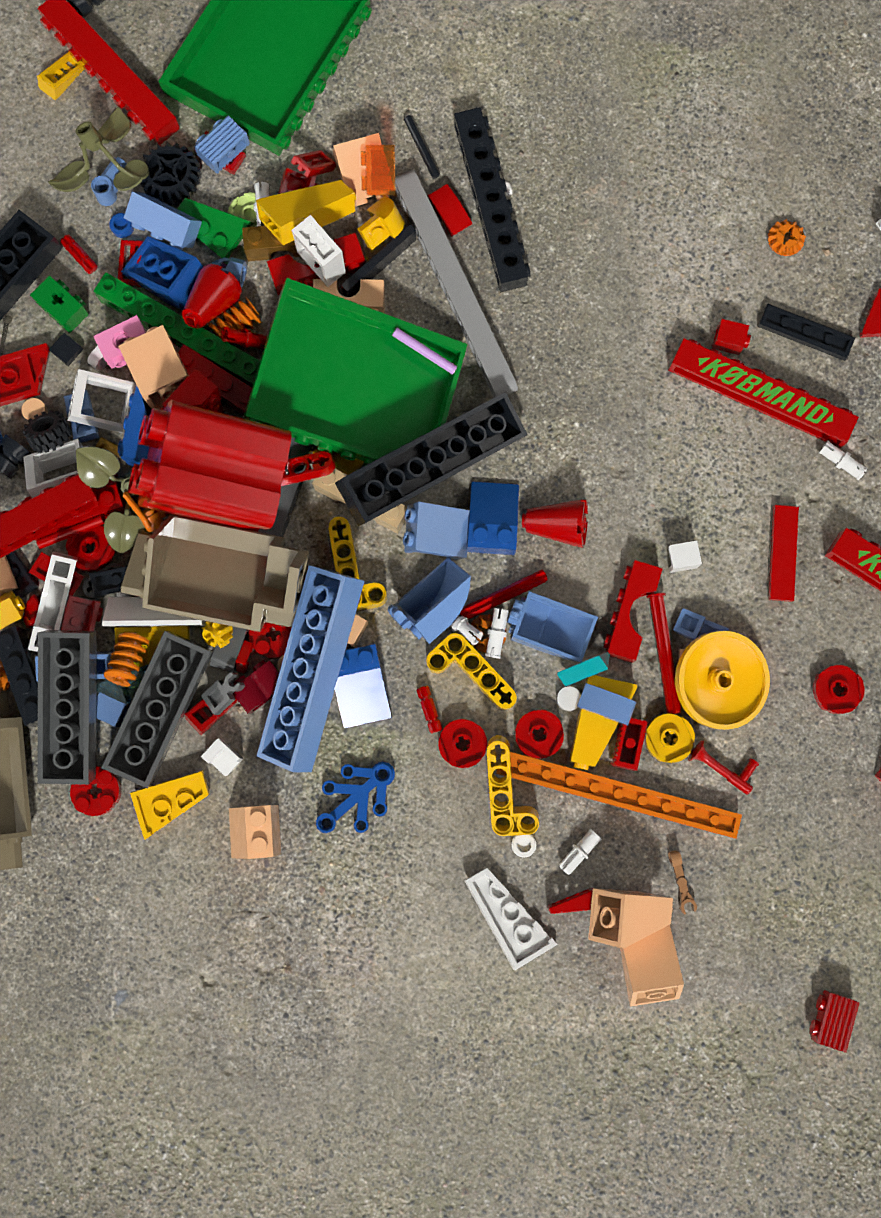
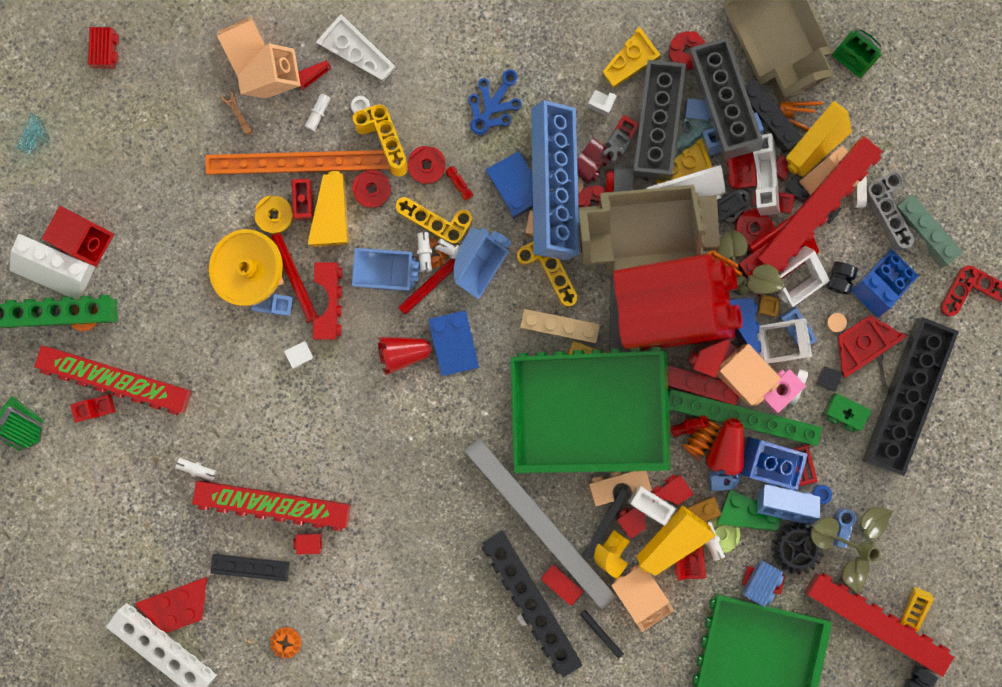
camera: 165 degrees right, 5 degrees up
(47, 431) = (811, 301): black tyre -> none
(78, 254) = (847, 460): red axle -> none
(124, 657) = (695, 148): orange piece -> none
(217, 634) = (634, 183): yellow gear -> none
(255, 832) = (559, 53): light nougat slope -> none
(309, 473) = (598, 333): red beam -> none
(315, 167) = (695, 584): red tile -> none
(379, 170) = (626, 593): clear orange brick -> none
(424, 350) = (545, 454): lavender bar -> none
(430, 459) = (512, 367): black brick -> none
(436, 530) = (493, 315): medium blue panel -> none
(568, 698) = (357, 222): white tile -> none
(584, 669) = (348, 245): teal slope -> none
(606, 704) = (326, 221): medium blue slope -> none
(740, 782) = (248, 209): red piece -> none
(783, 553) = (223, 382): red tile -> none
(847, 678) = (162, 279): red plate -> none

